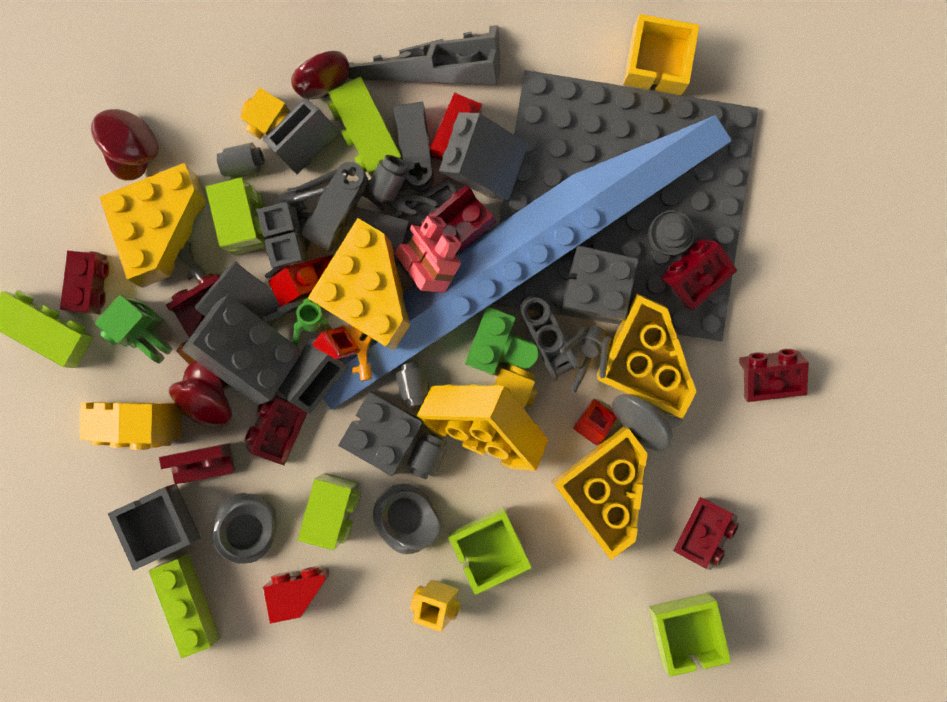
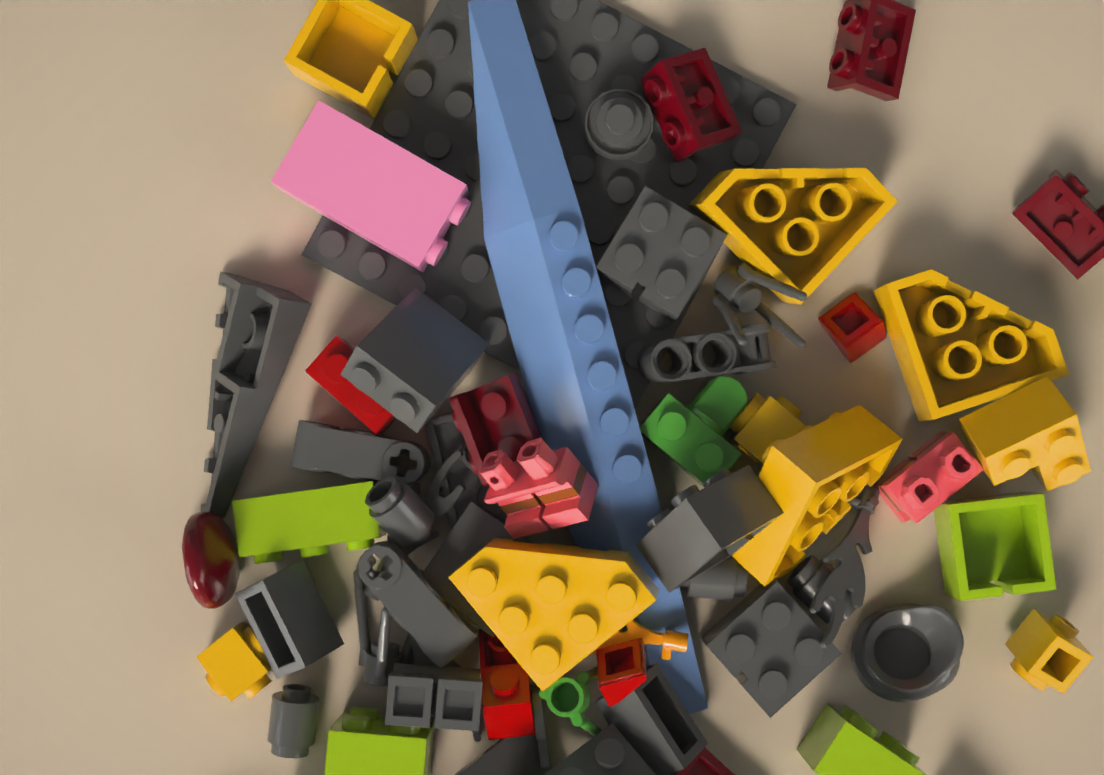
camera: 65 degrees left, 0 degrees up
(441, 365) = (707, 526): none -> dark grey piece
(444, 466) = (850, 571): none -> dark grey piece
(517, 497) = (928, 477): none -> coral hips
(566, 544) = (1027, 432): none -> yellow brick
(580, 95) = (372, 187): none -> bright pink brick
(645, 421) = (881, 256): dark grey piece -> none

